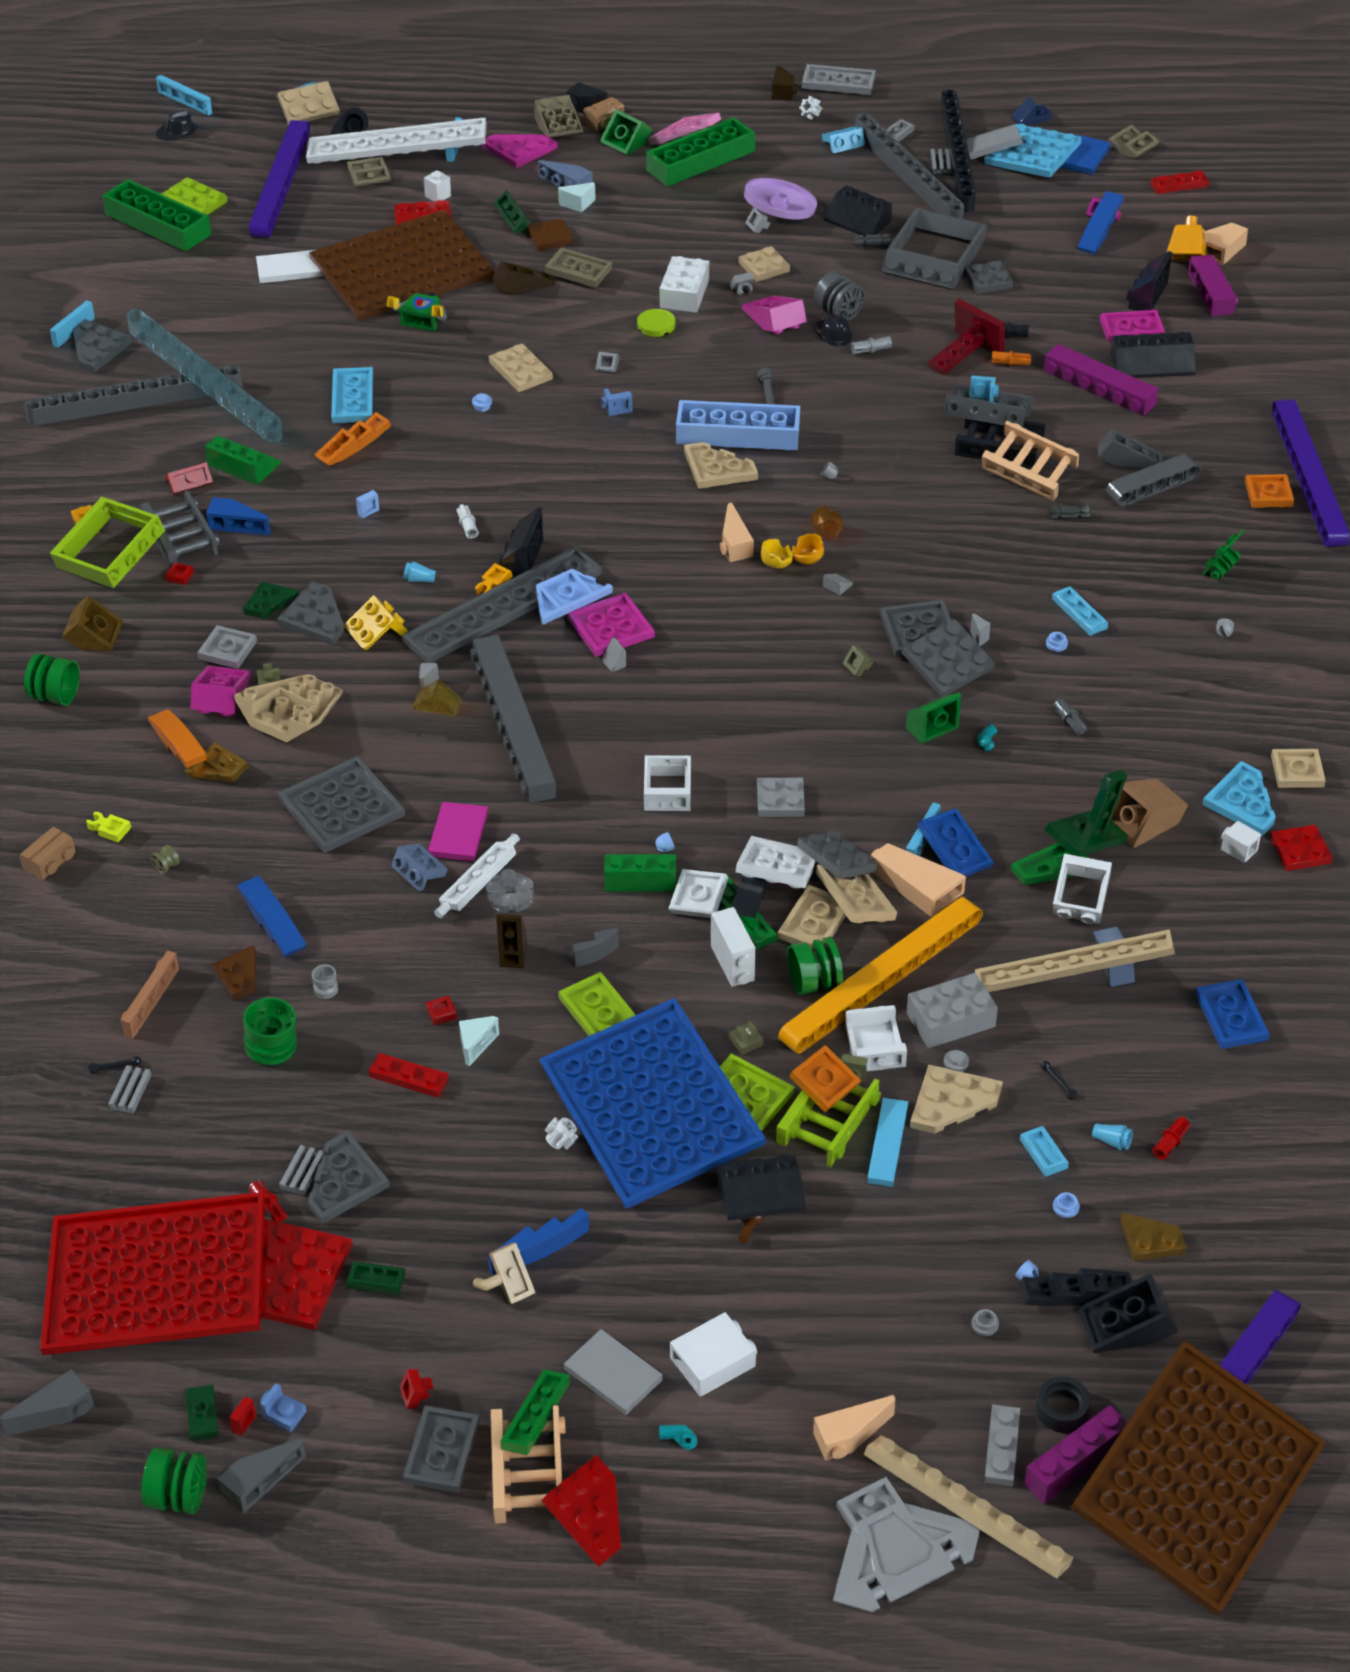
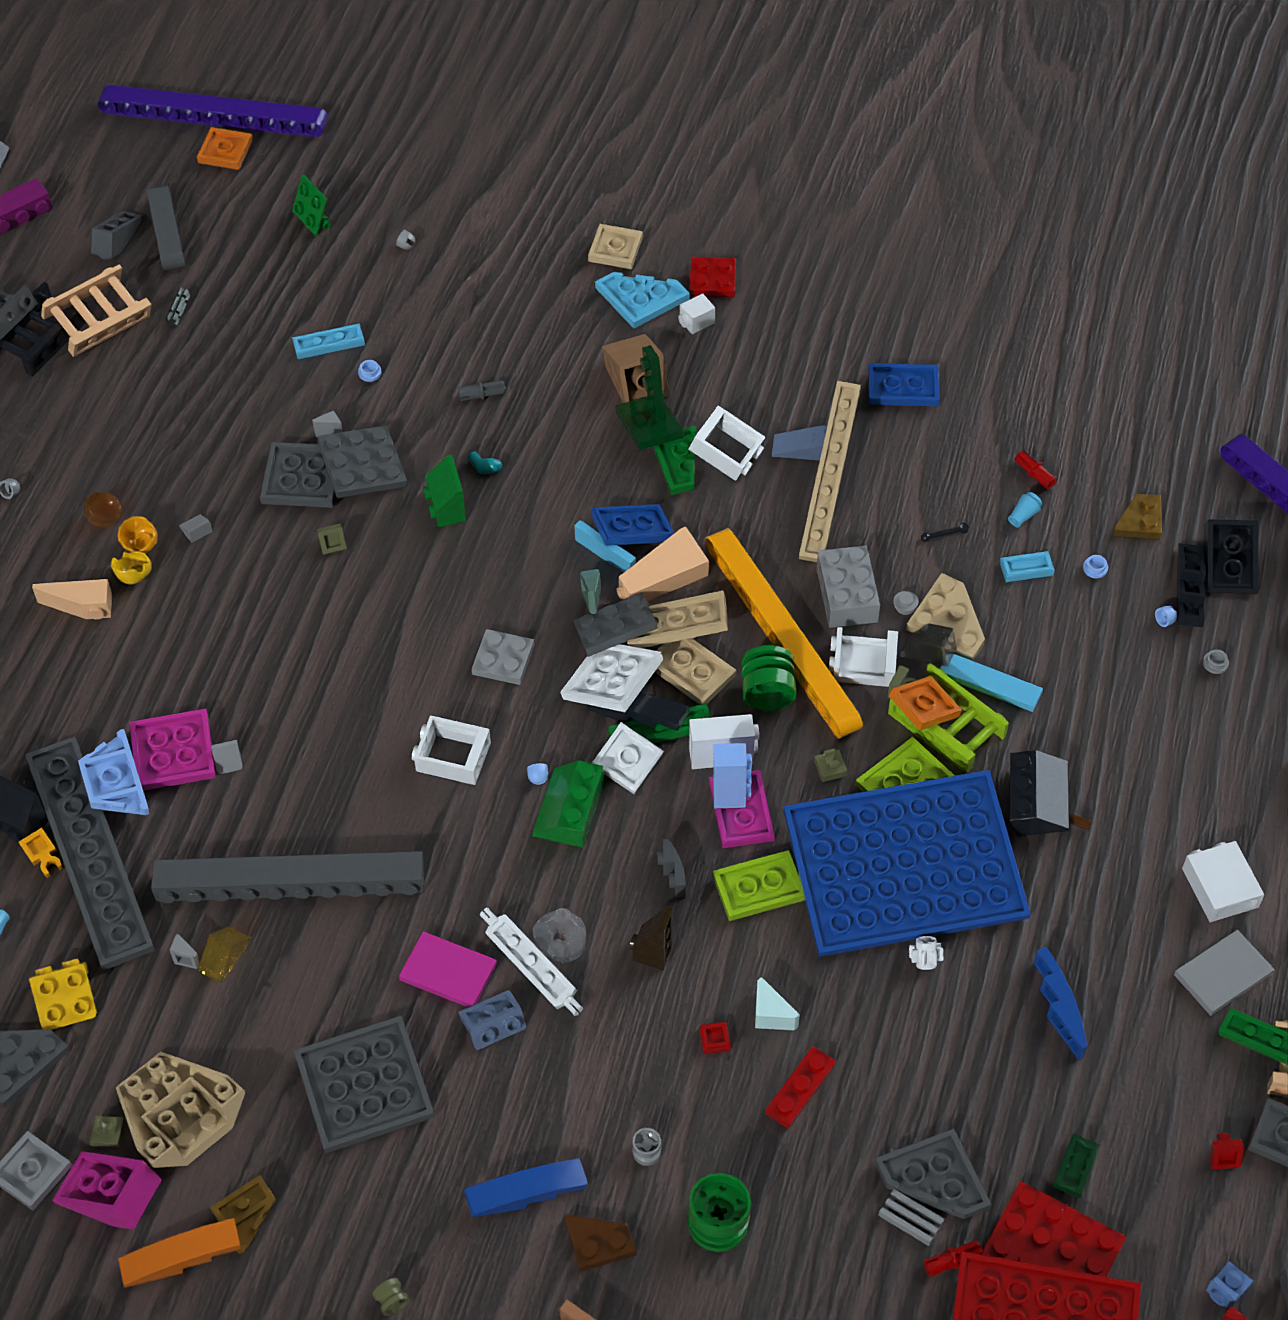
camera: 75 degrees left, 10 degrees up
(510, 1274) = (1106, 1033): tan plate -> none
(684, 946) = (731, 775): none -> light blue brick
(685, 981) = (746, 824): none -> dark pink tile
(868, 830) = (591, 588): none -> sand green slope
(904, 1084) = (931, 644): none -> clear smoke slope

